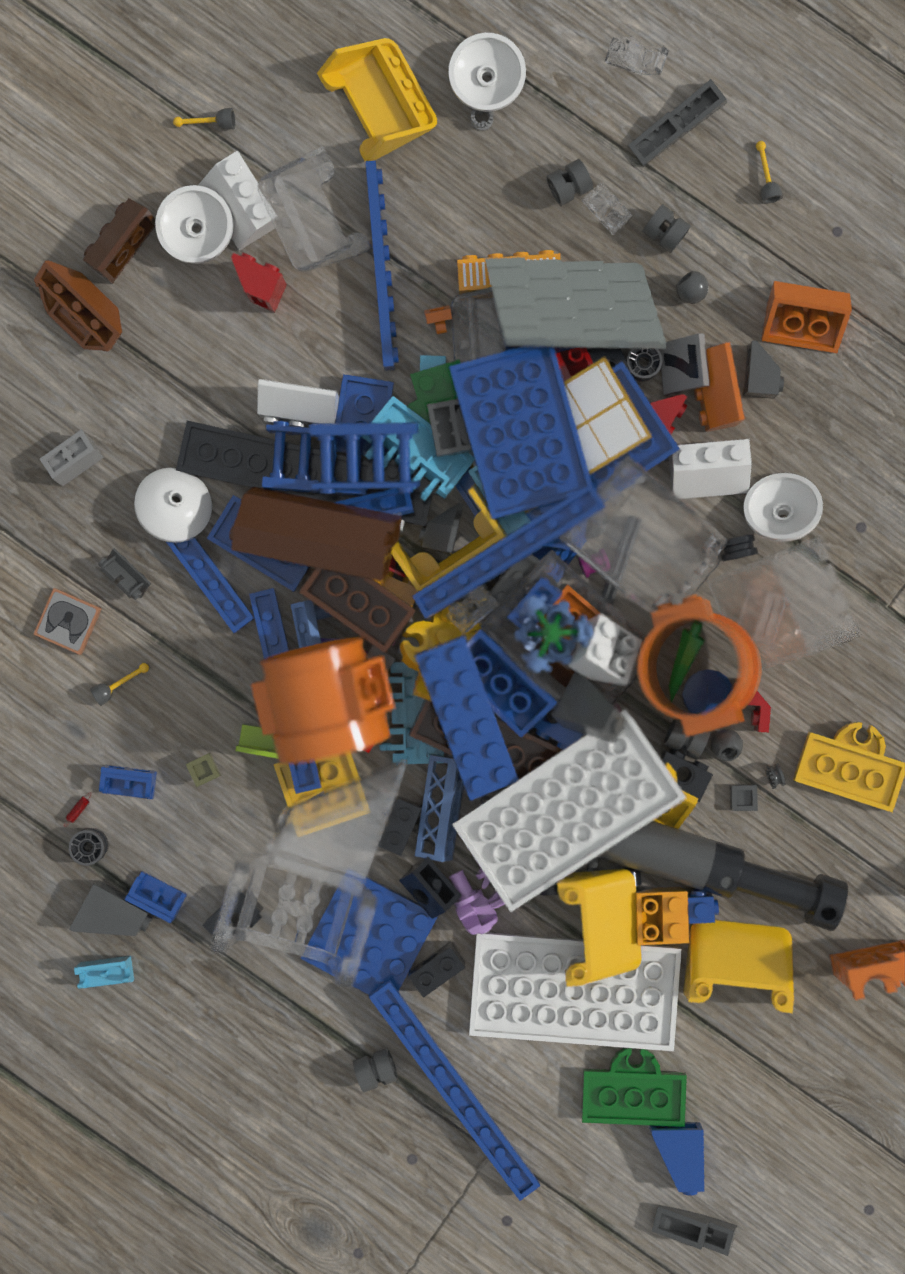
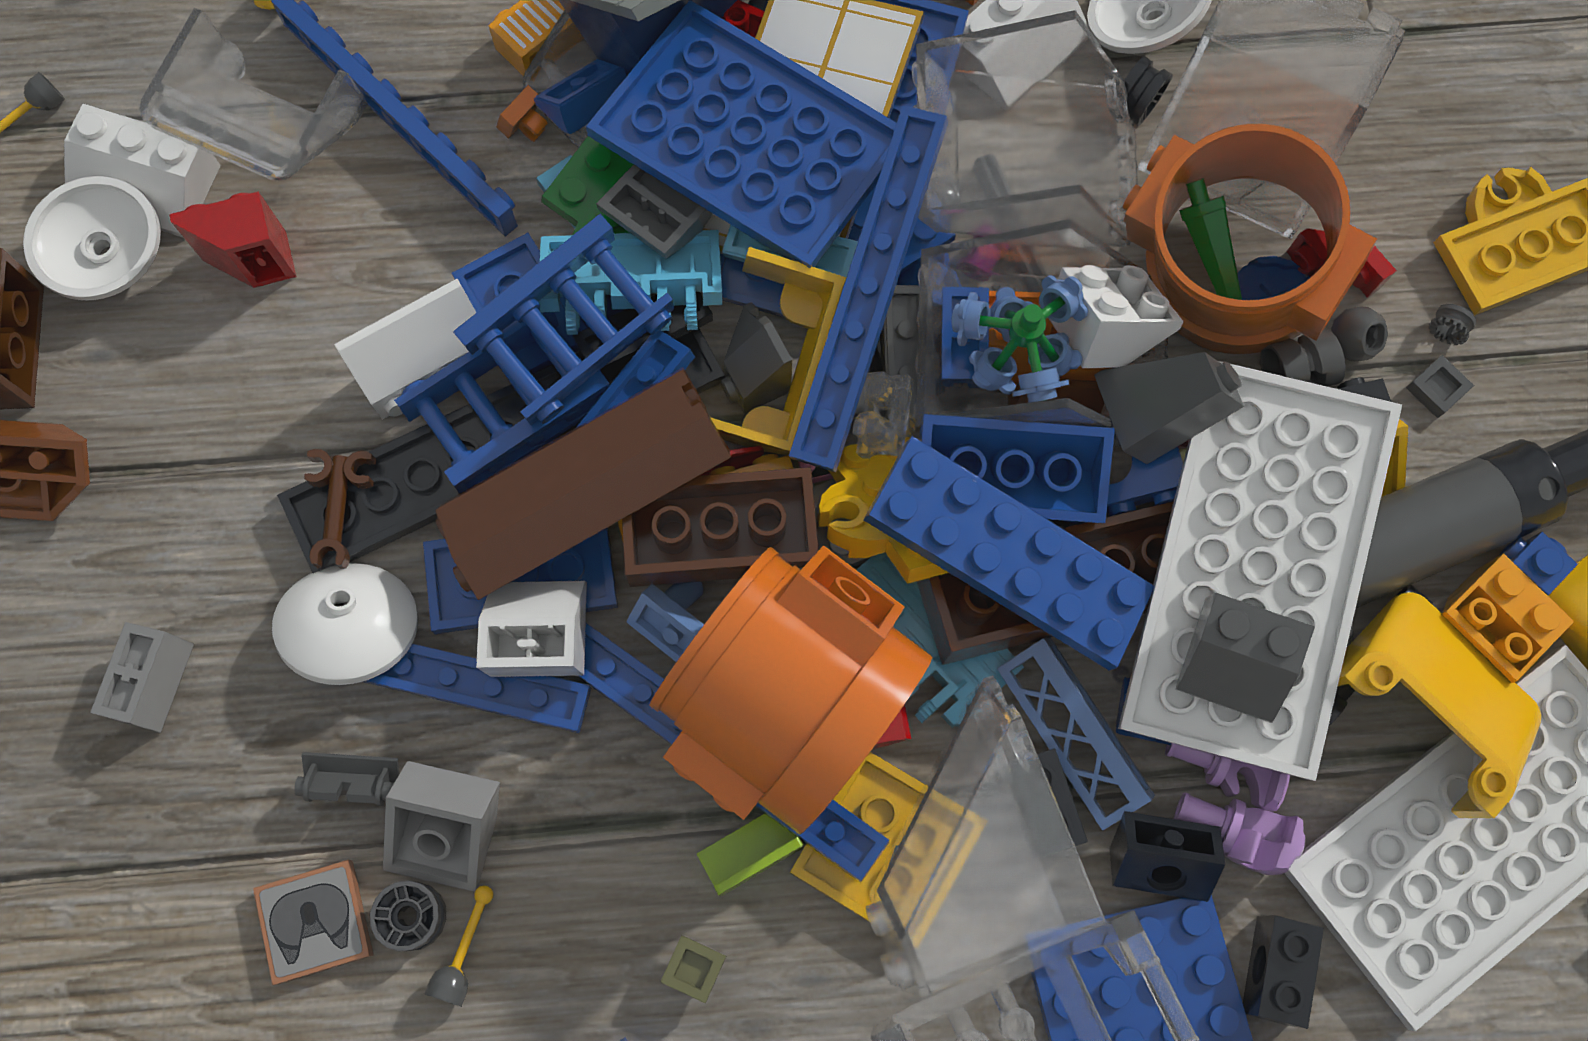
camera: 40 degrees left, 15 degrees down
(96, 651) = (394, 931): none -> black wheel
(147, 625) = (439, 825): none -> light grey slope
(220, 433) = (336, 474): none -> reddish brown bar
(248, 578) = (533, 630): none -> white slope
(473, 334) = (580, 95): none -> blue slope
(523, 840) = (1244, 657): none -> dark grey slope

